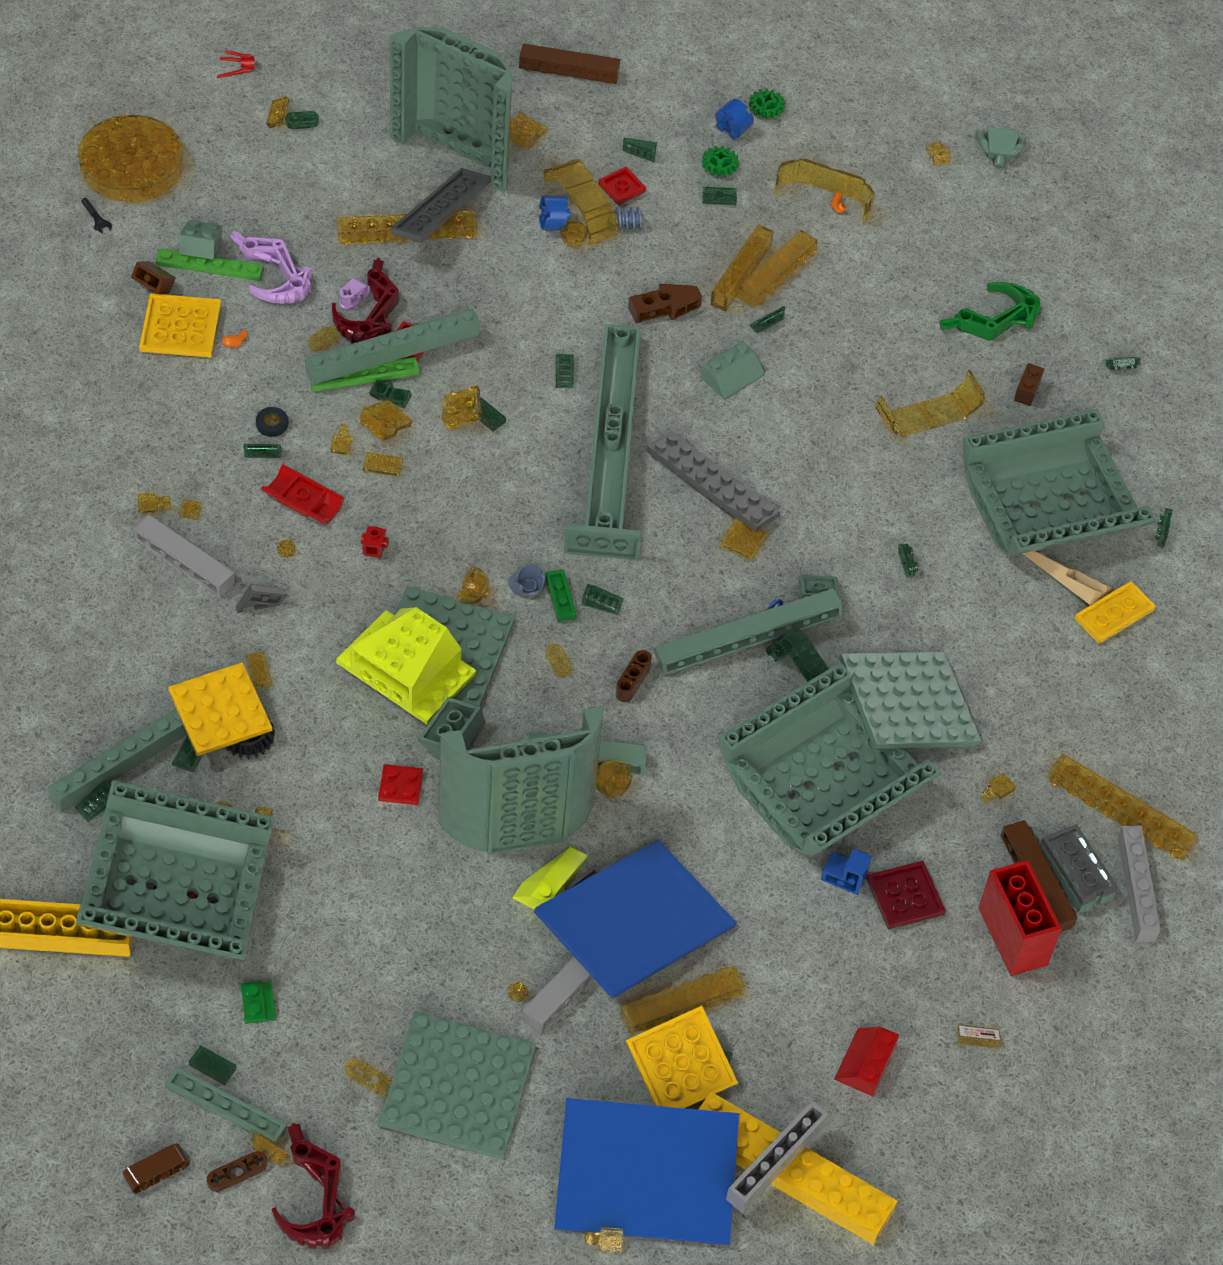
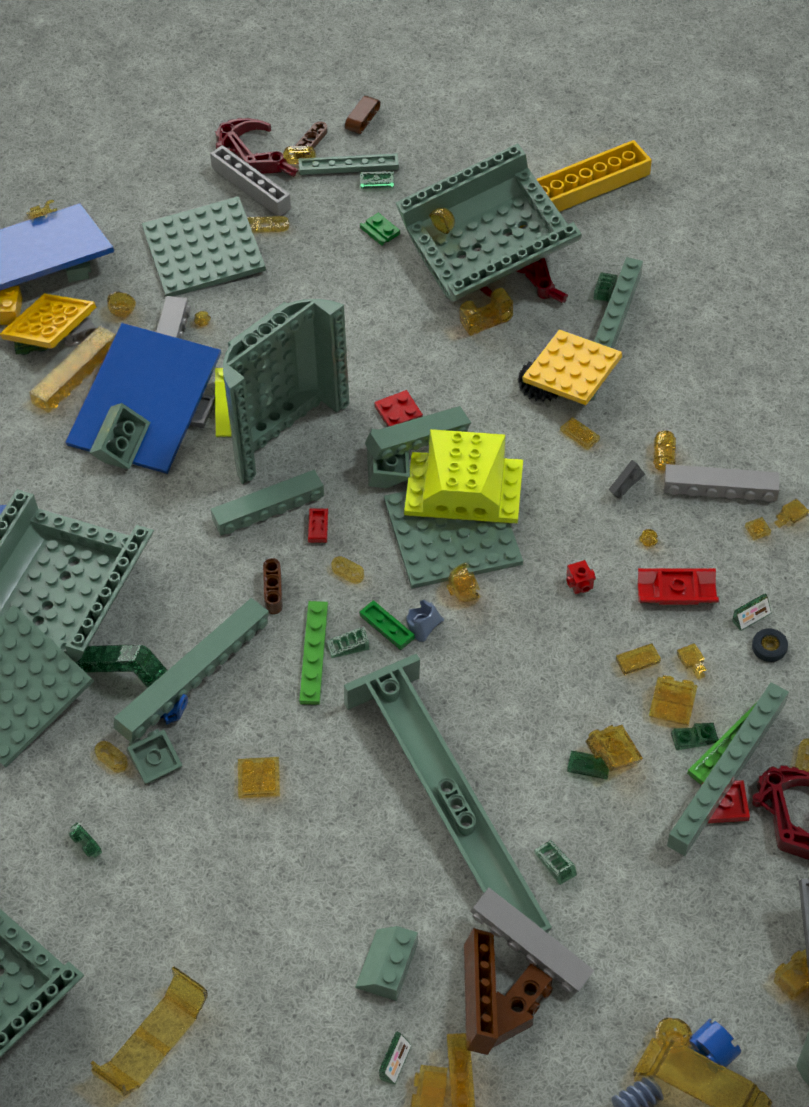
camera: 155 degrees right, 0 degrees up
(199, 612) = (664, 450): none -> clear yellow piece
(208, 920) = (442, 220): none -> clear yellow helmet
(352, 1135) = (250, 181): none -> light grey brick
(409, 725) = (414, 433): none -> sand green brick
(556, 711) = (318, 525): none -> red plate
(590, 1057) = (120, 308): none -> clear yellow helmet
(613, 778) = (233, 486): clear yellow cylinder -> none
(628, 317) = (532, 941): none -> light grey brick
(634, 610) = (313, 653): none -> bright green plate
(686, 306) = (480, 992): none -> reddish brown brick
(686, 883) = (120, 436): none -> sand green slope
(713, 481) = (325, 817): dark grey plate -> none
(855, 613) = (108, 760): none -> clear yellow beam

